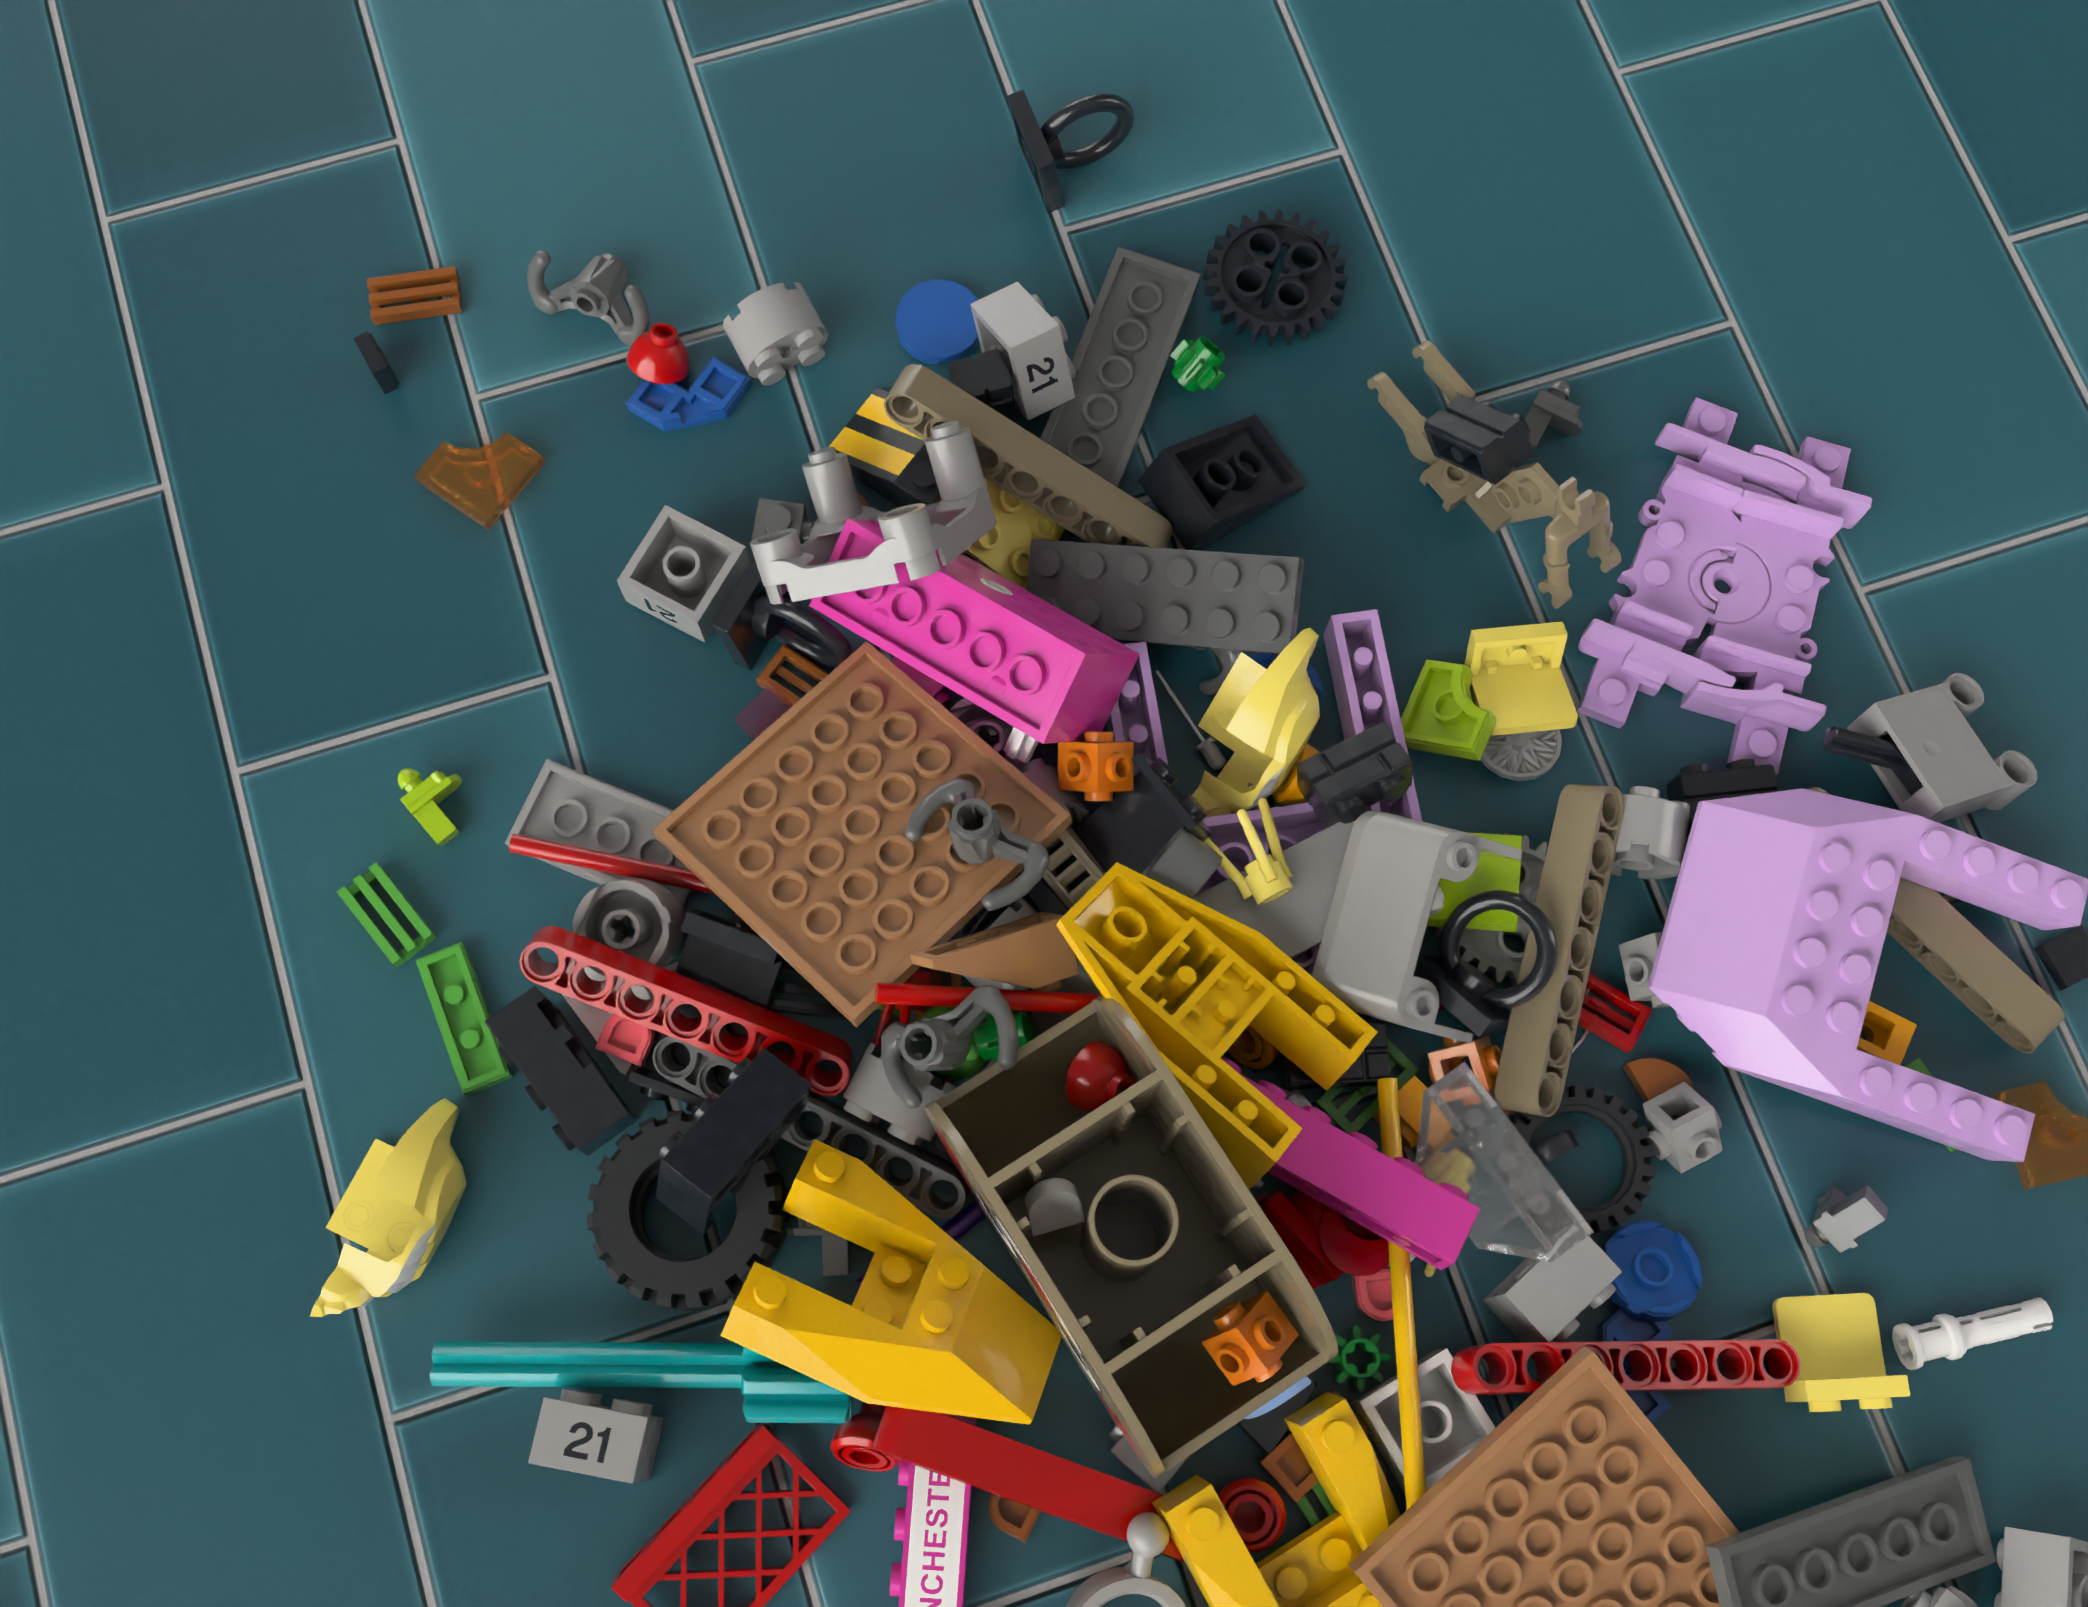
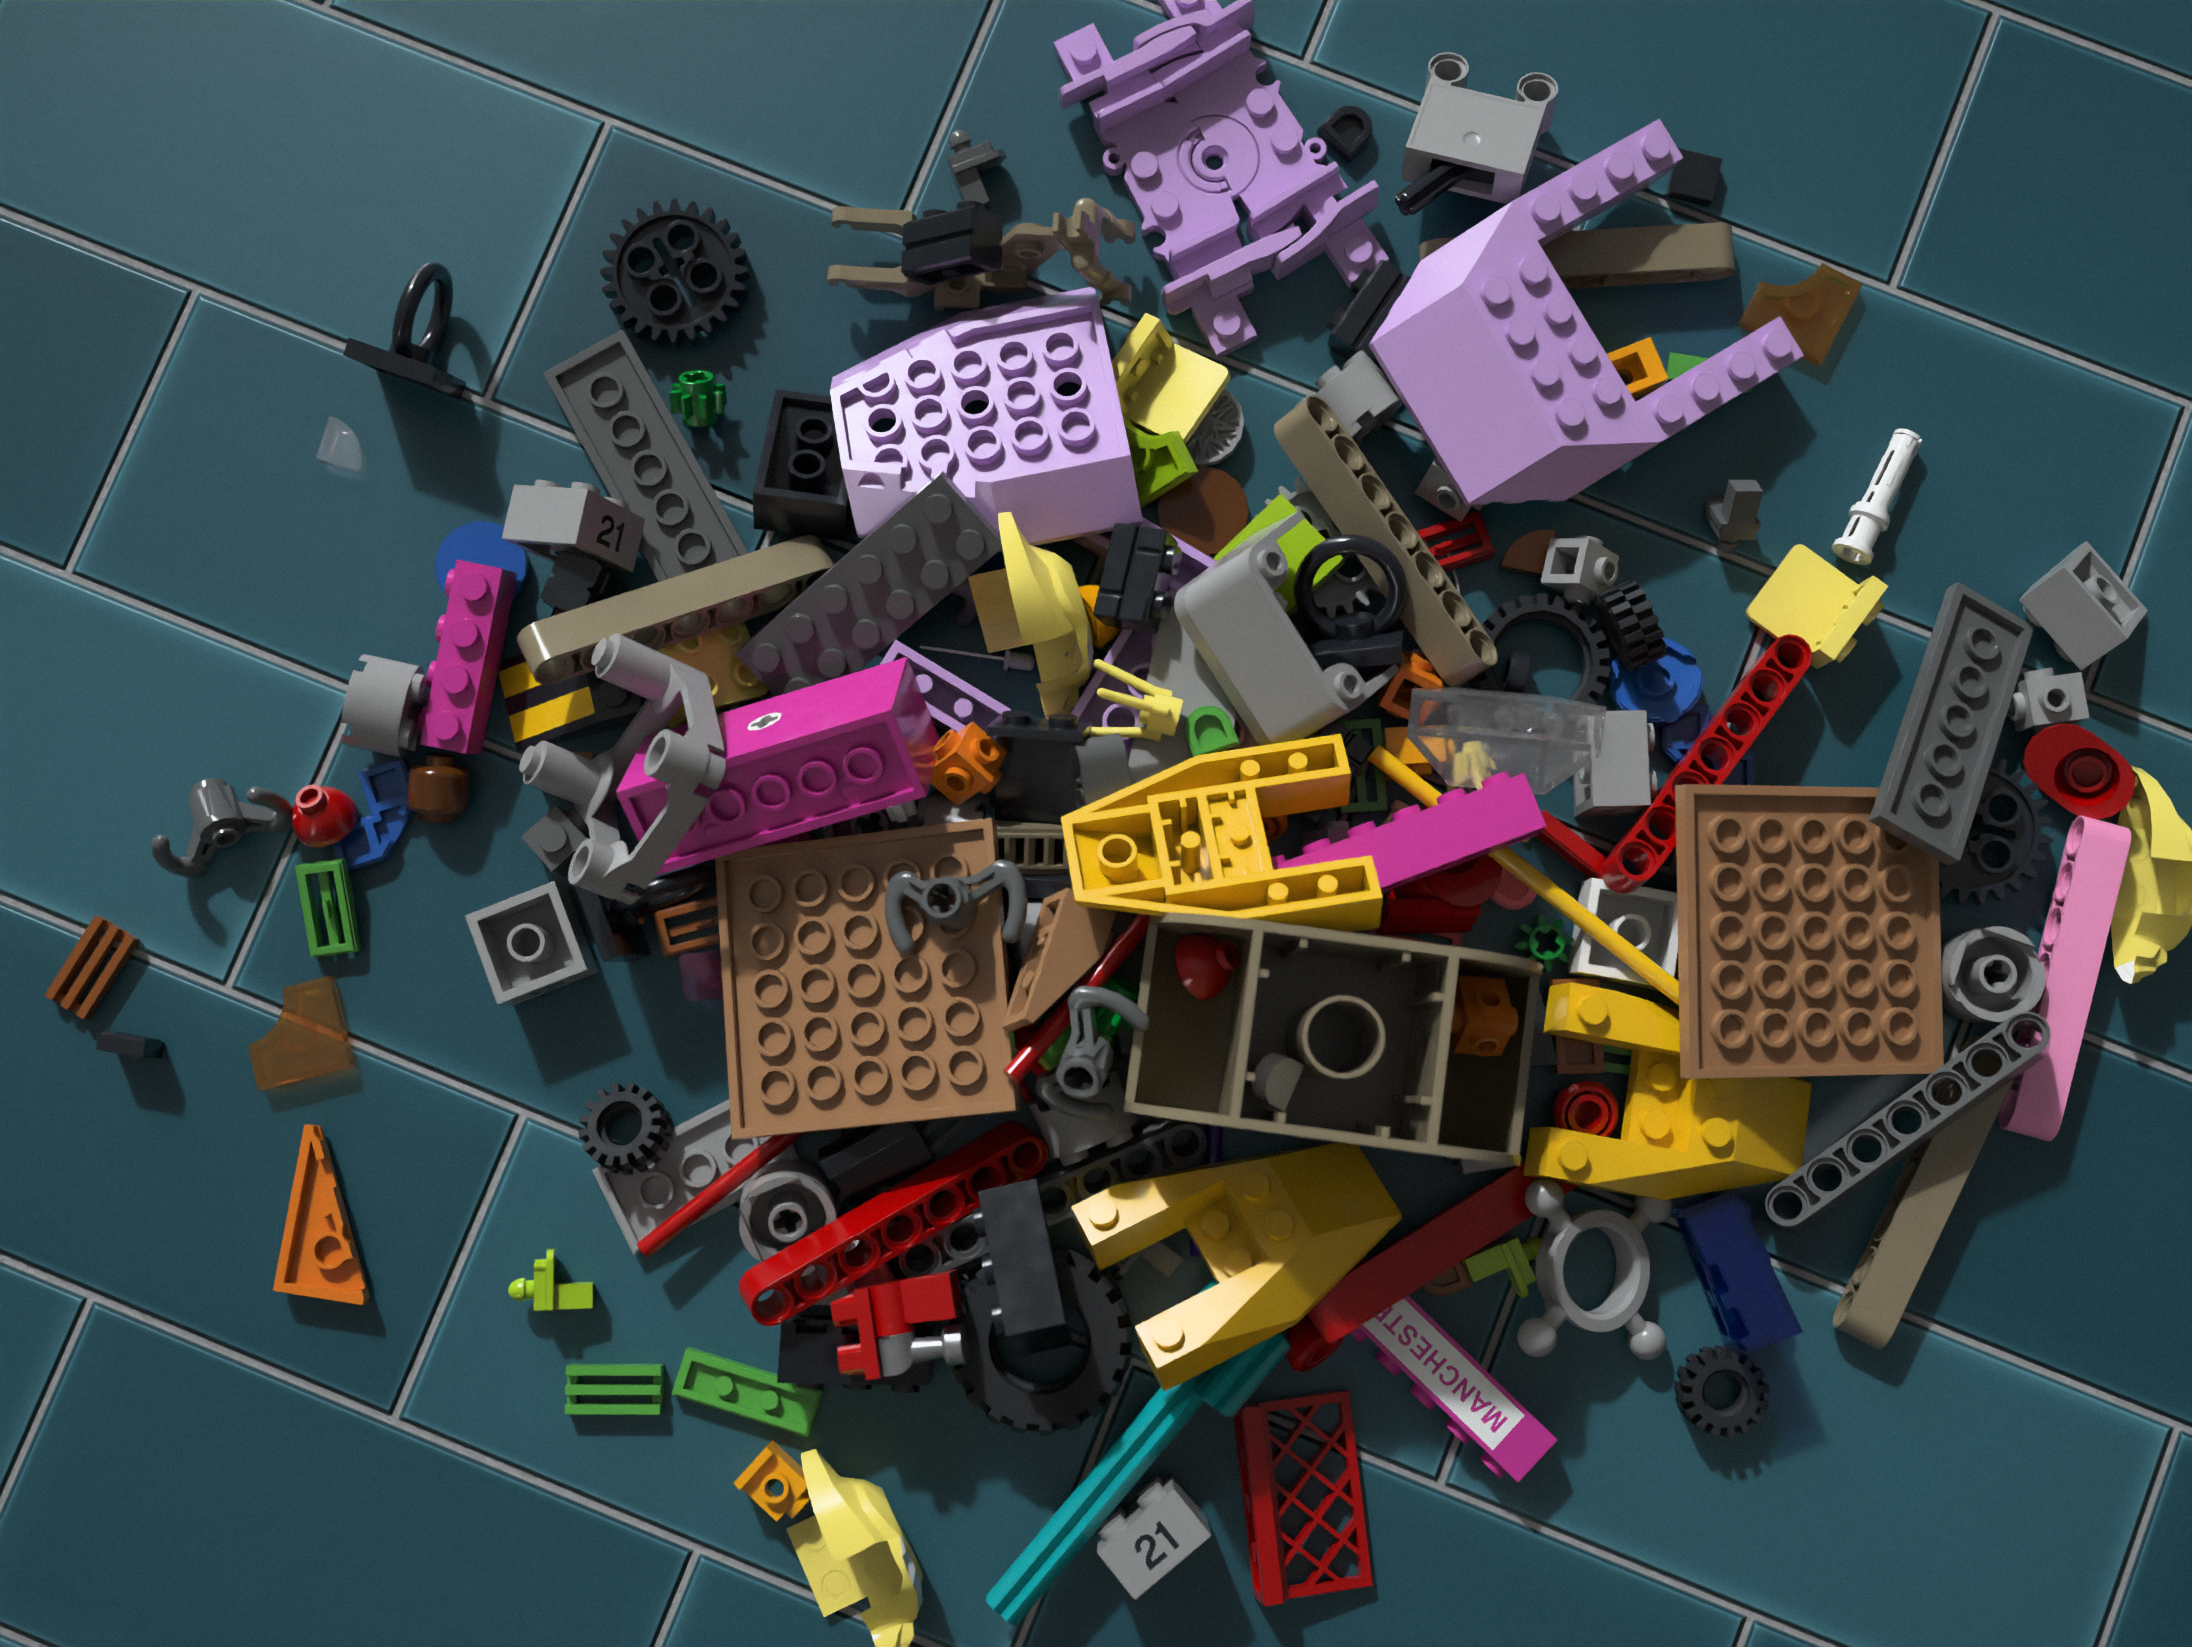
camera: 45 degrees left, 10 degrees up
(330, 607) = (317, 1242): none -> orange wing
(418, 1079) = (775, 1464): none -> light orange brick
(598, 733) = (607, 1111): none -> black tyre
(600, 1067) = (887, 1327): none -> red hips
(602, 429) = (346, 906): none -> bright green tile
(747, 419) = (438, 788): none -> reddish brown head
(862, 359) = (467, 657): none -> dark pink brick
(941, 162) = (341, 447): none -> clear tile
(1073, 1548) = (1506, 1255): none -> lime piece
(1288, 928) = (1209, 731): none -> bright green tile
(1382, 620) = (1031, 453): none -> lavender wedge
(1455, 1307) = (1571, 847): none -> red tile
(1456, 793) = (1204, 510): none -> reddish brown tile
(1677, 1204) = (1630, 625): none -> black tyre
(1841, 663) = (1347, 131): none -> black tile

